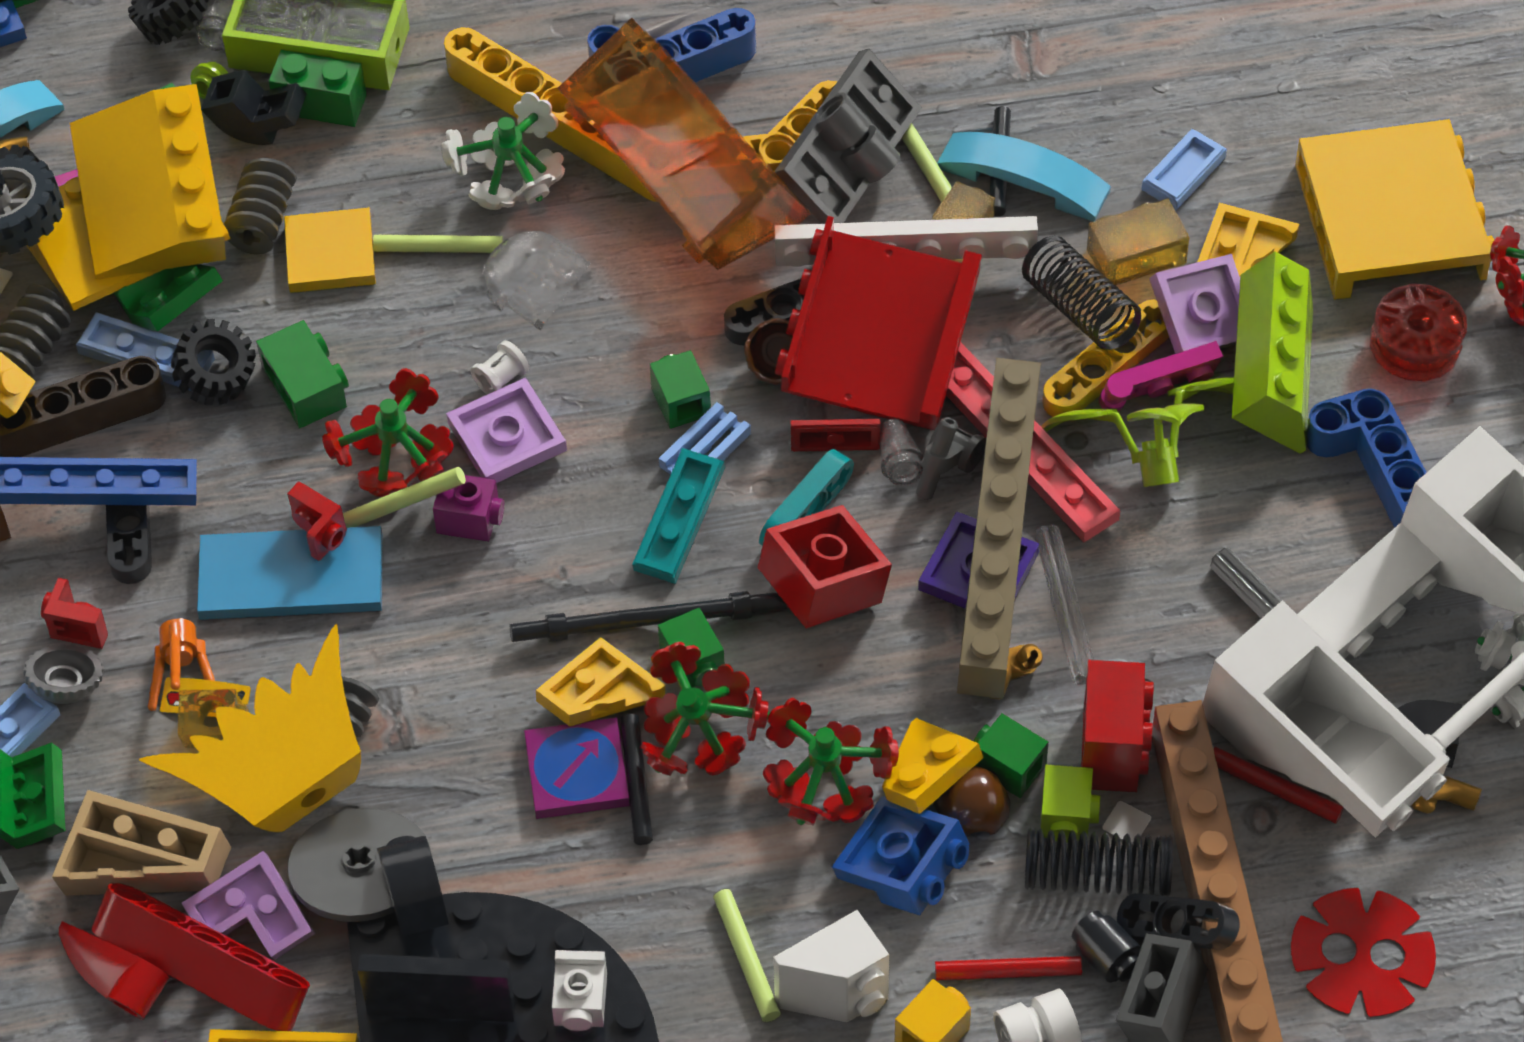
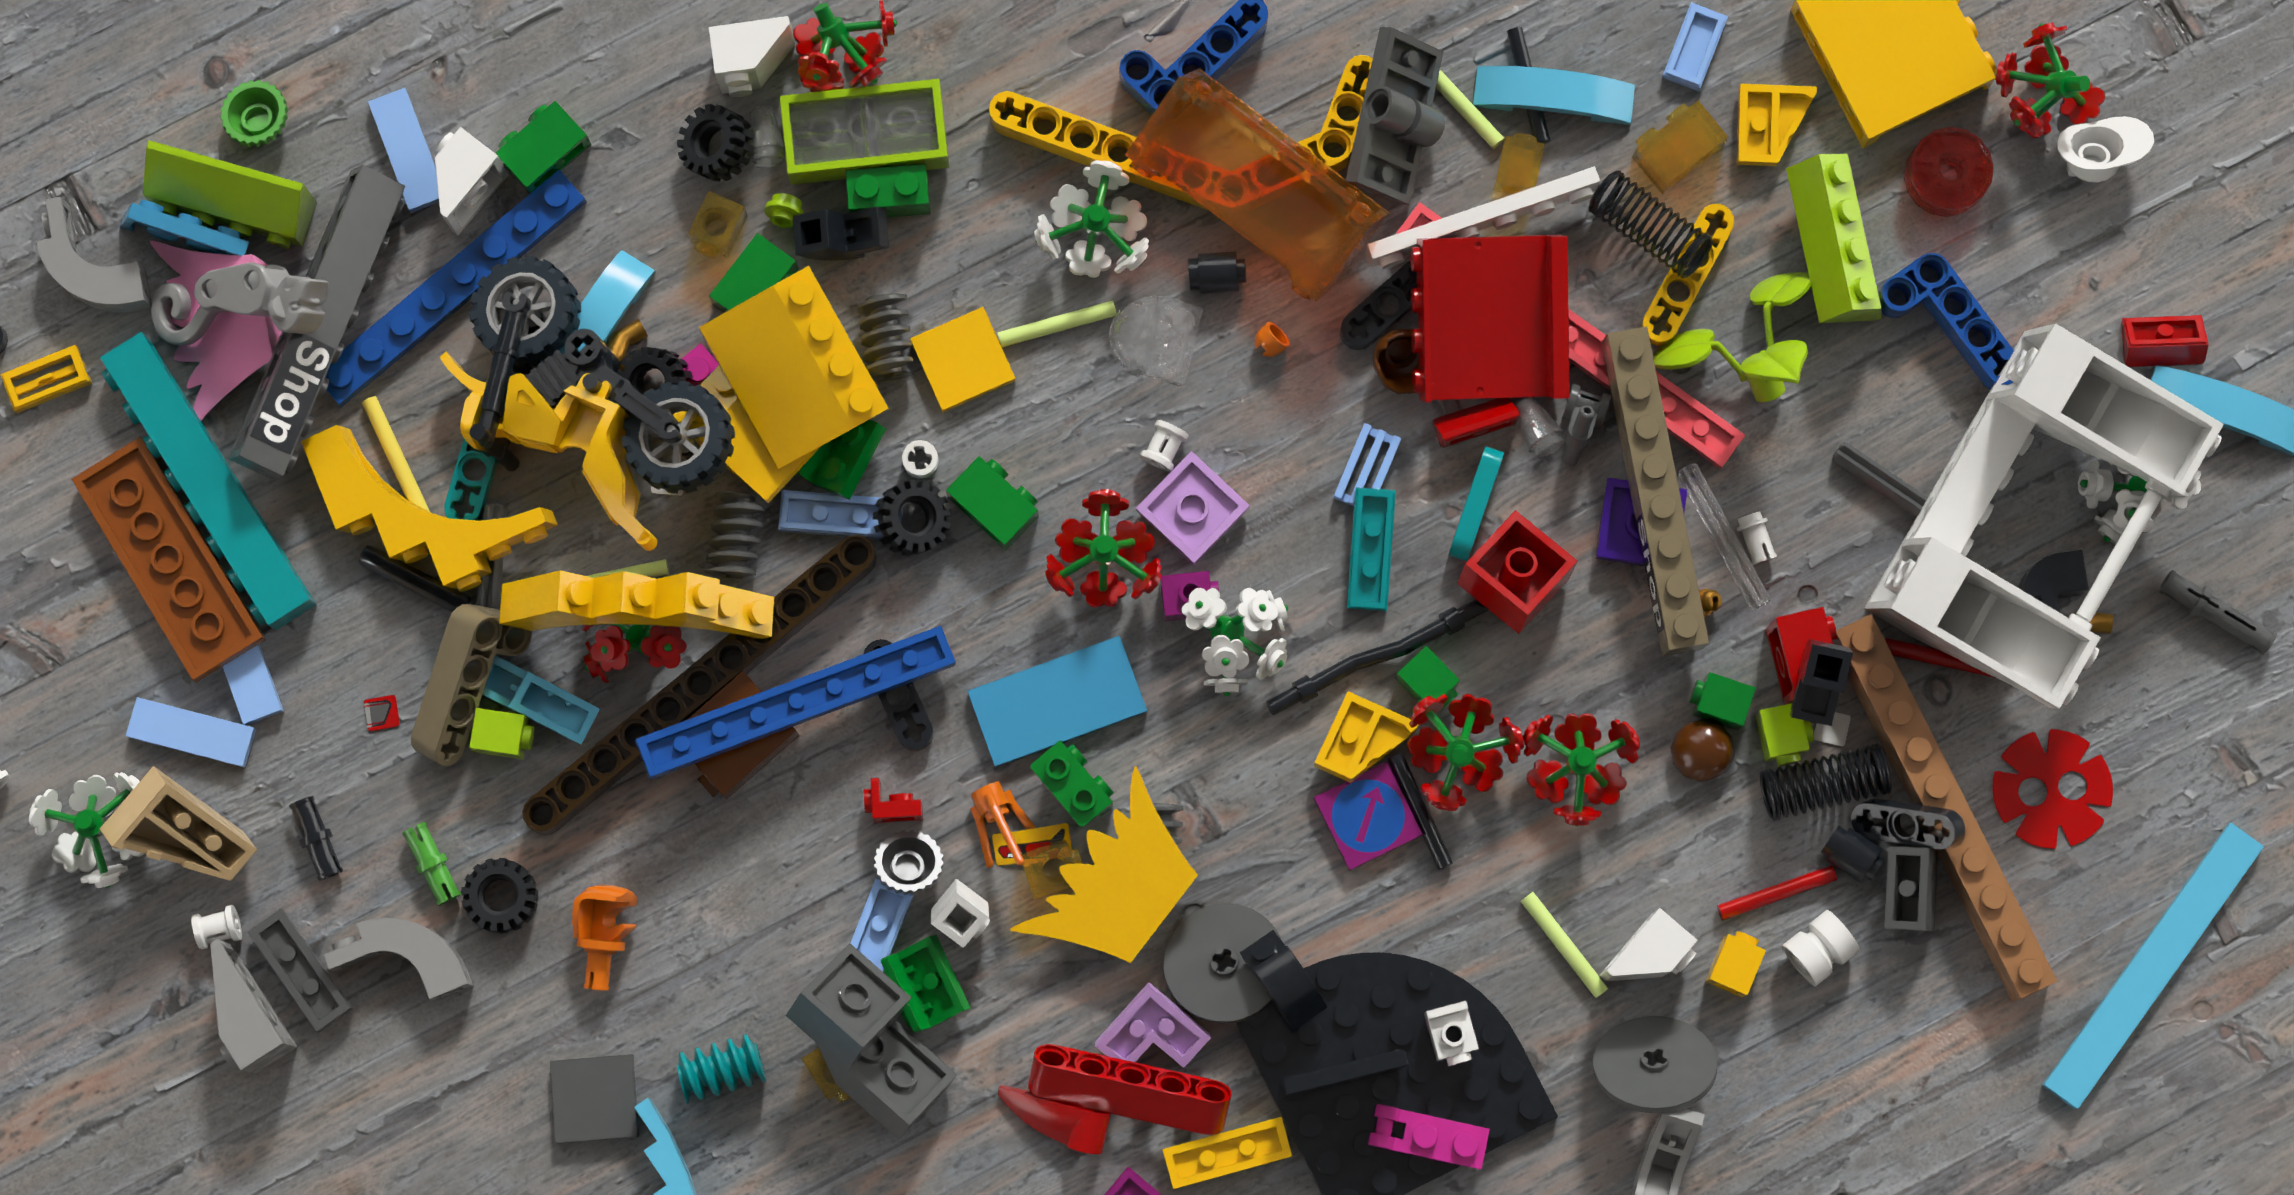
camera: 20 degrees left, 25 degrees up
(94, 731) = (960, 913): none -> white brick
(138, 72) = (717, 208): none -> clear yellow brick
(139, 849) = (1042, 1010): tan wedge -> none
(248, 310) = (930, 452): none -> white bush
(267, 636) = (1071, 784): none -> green bracket
(318, 517) = (1063, 649): red bracket -> none
(404, 497) = (1134, 610): yellowish green bar -> none
(481, 546) = (1228, 640): none -> white plant
(616, 235) = (1216, 272): none -> black brick
(648, 308) = (1271, 339): none -> orange hinge
(680, 388) = (1328, 419): green brick -> none
(903, 855) = (1664, 821): blue plate -> none
(928, 765) = (1664, 733): yellow wing -> none
(1100, 604) = (1756, 537): none -> white pin
(1117, 716) = (1820, 680): none -> black brick
(1160, 375) = (1739, 286): dark pink plate -> none
(1199, 302) = (1757, 204): lavender plate -> none

